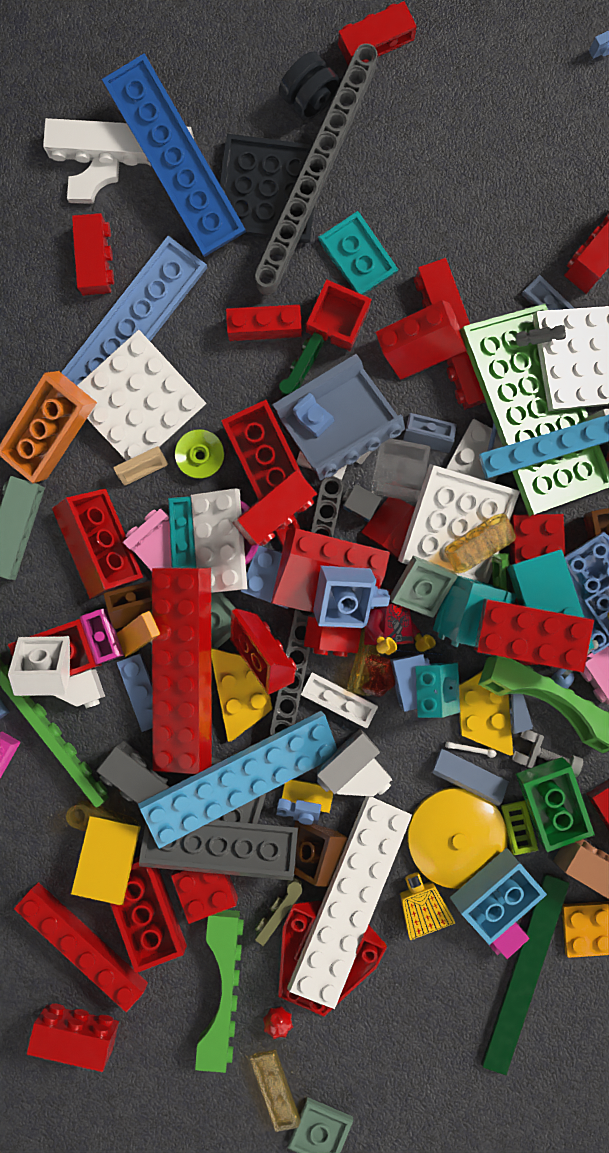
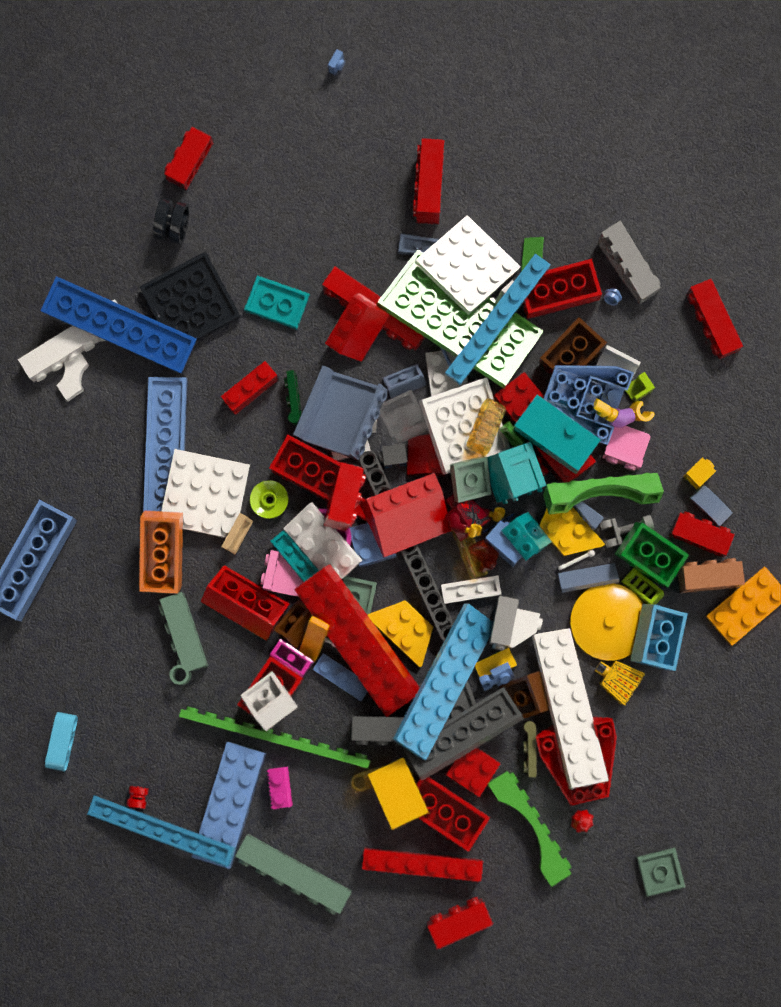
camera: 30 degrees left, 5 degrees down
(84, 689) = (305, 700): white slope -> none
(92, 254) = (108, 423): red brick -> none
(261, 651) = (399, 592): red slope -> none
(275, 1090) = (612, 864): clear yellow plate -> none
(312, 415) = (323, 423): medium blue bracket -> none
(319, 158) = (210, 261): dark grey beam -> none
(335, 639) = (437, 550): red brick -> none
(338, 315) = (293, 349): red piece -> none
(347, 596) = (427, 518): medium blue hinge -> none
(509, 941) = (686, 661): dark pink brick -> none
(524, 976) = (714, 676): dark green tile -> none
(534, 635) = (557, 458): red brick -> none
(541, 335) = (429, 273): dark grey axle -> none
(565, 677) = (600, 471): medium blue hinge -> none

